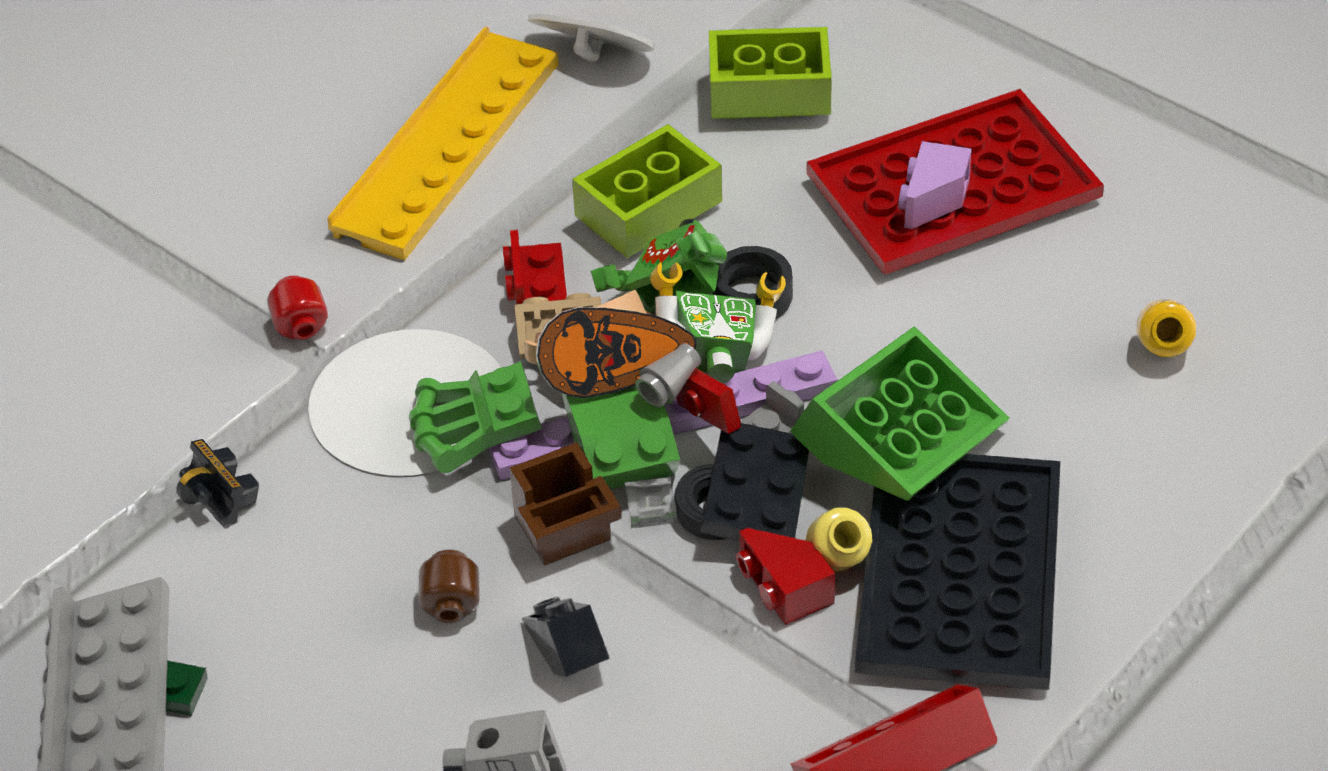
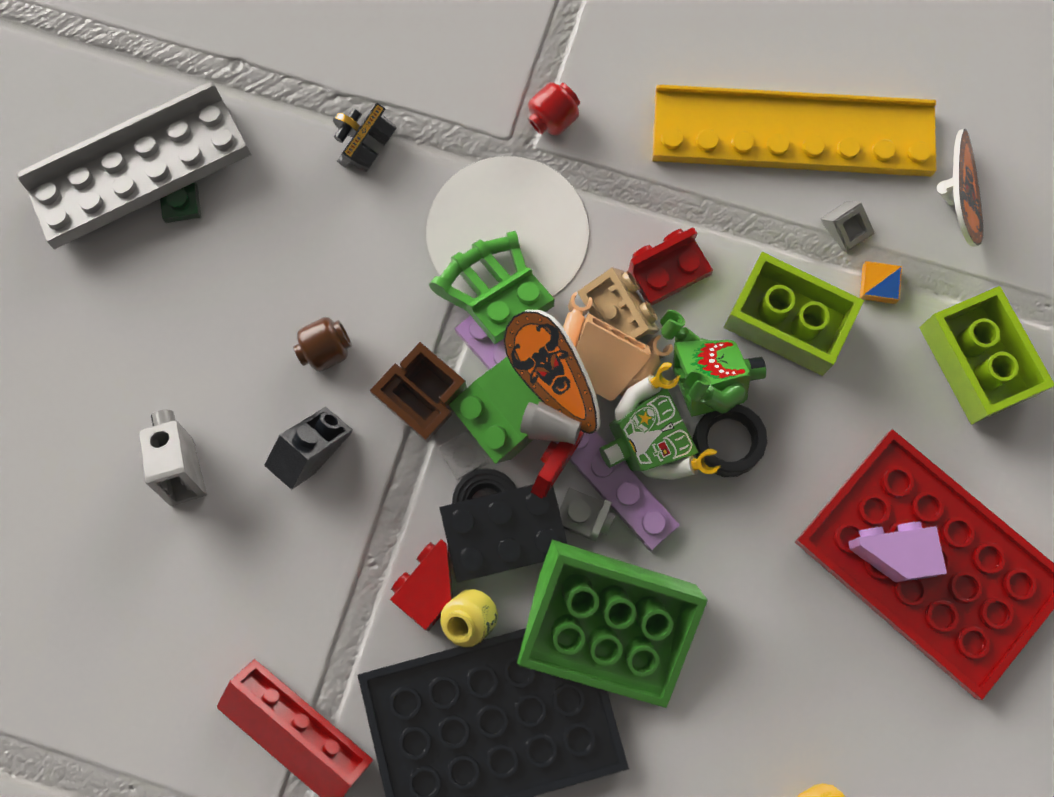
camera: 65 degrees right, 30 degrees up
(572, 133) = (848, 224): none -> light grey slope
(645, 123) = (880, 282): none -> light orange tile

